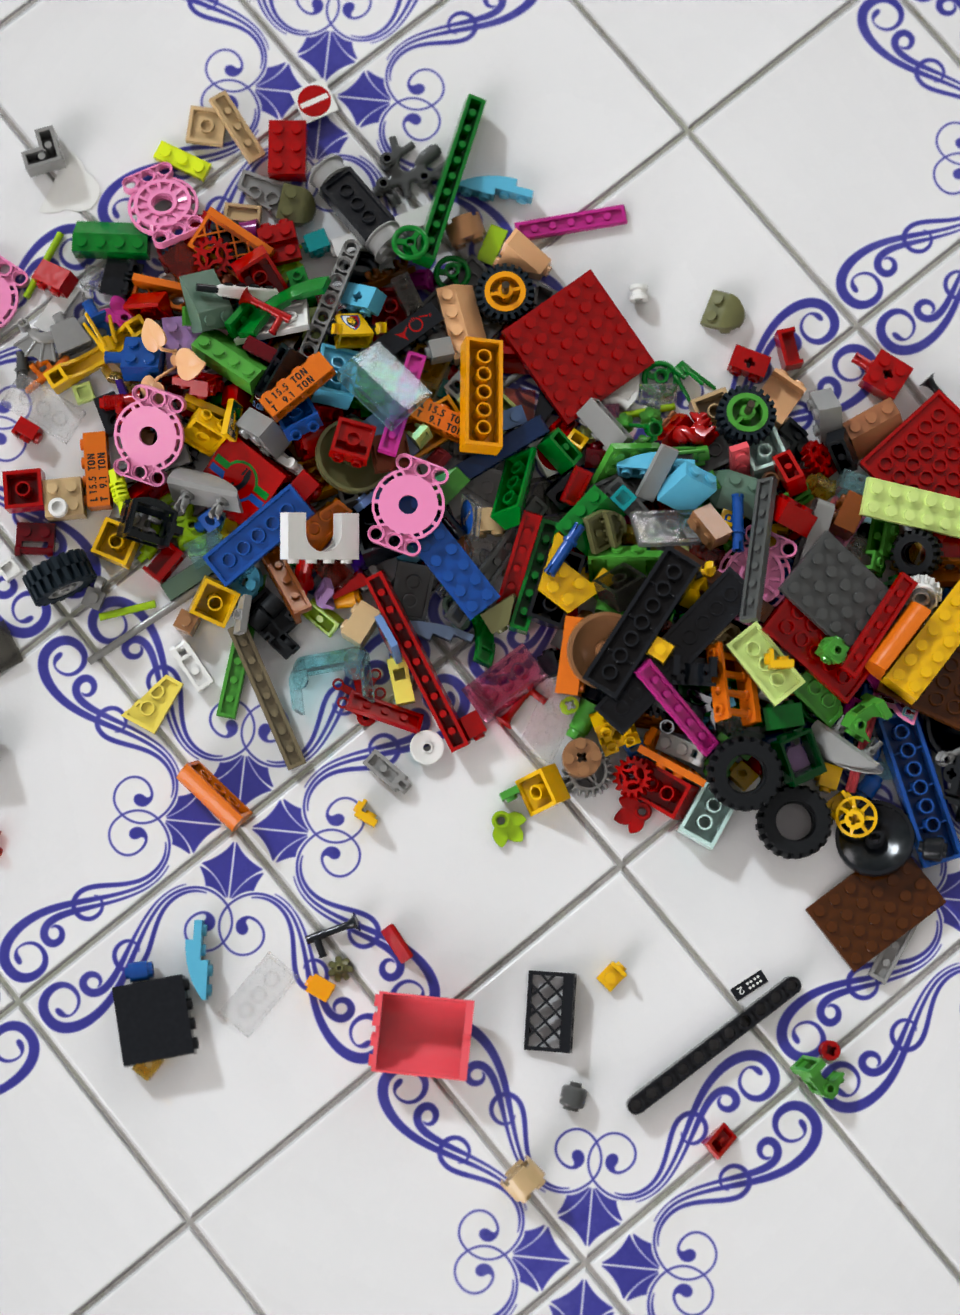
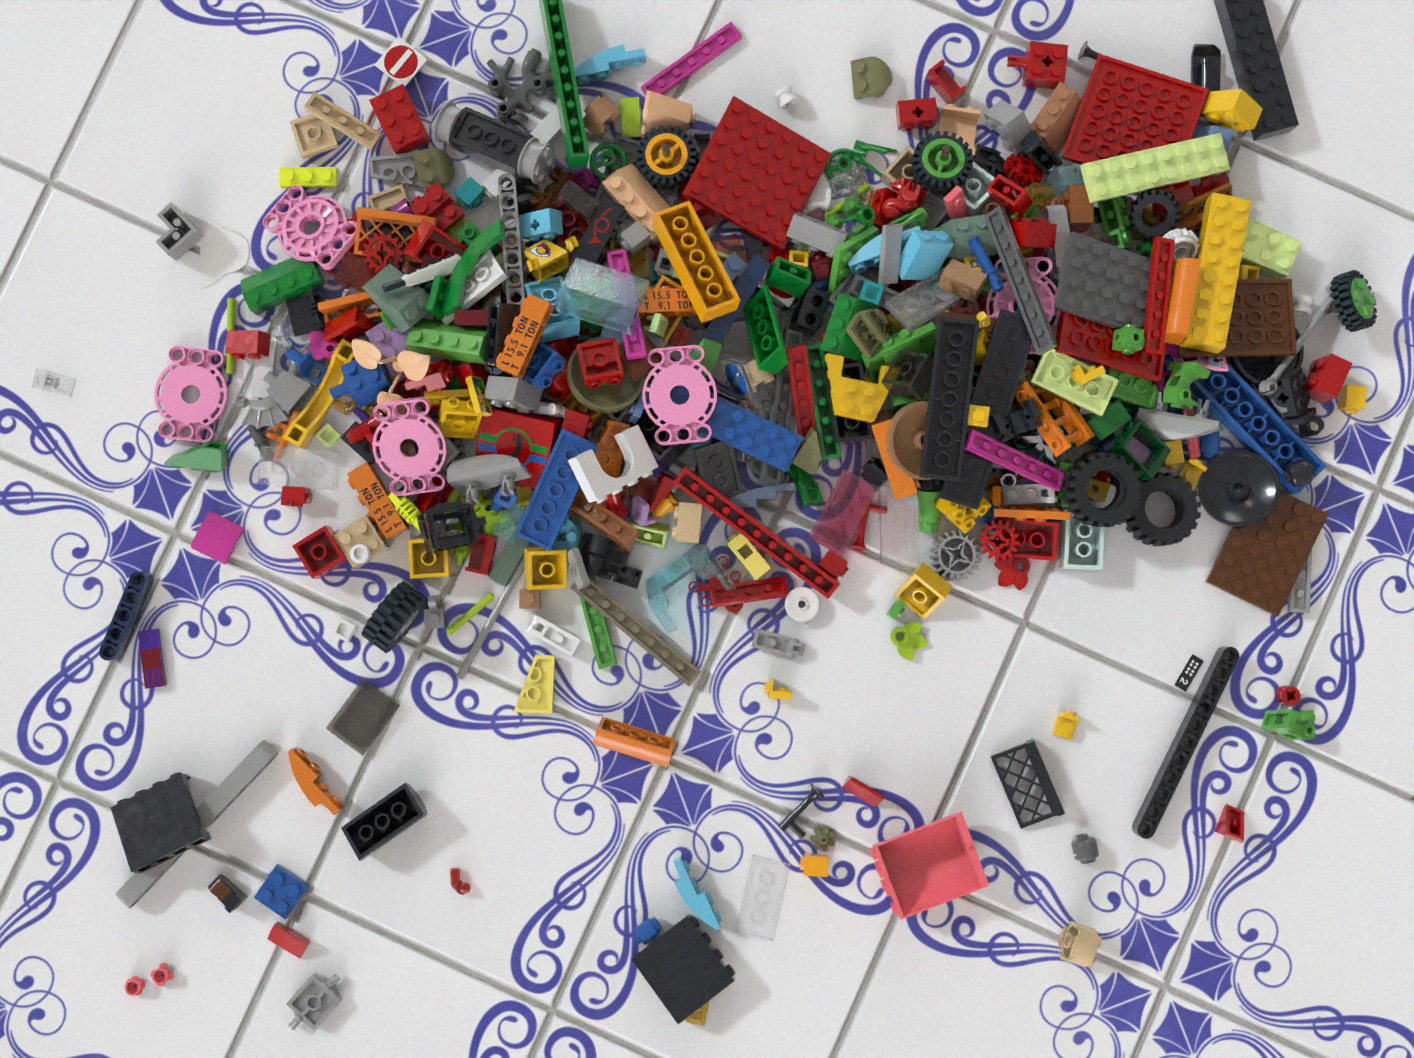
camera: 25 degrees left, 5 degrees up
(35, 533) = (351, 585): dark red plate -> none
(104, 343) = (325, 381): yellow plant -> none
(280, 315) = (475, 277): red piece -> none
(388, 639) = (721, 525): medium blue tile -> none
(410, 252) = (564, 159): green piece -> none
(568, 543) = (842, 366): blue pin -> none
(575, 704) = (913, 499): lime bush -> none
(576, 485) = (820, 302): red tile -> none
(578, 747) = (957, 542): medium nougat brick -> none
(856, 817) = (1214, 479): yellow wheel -> none

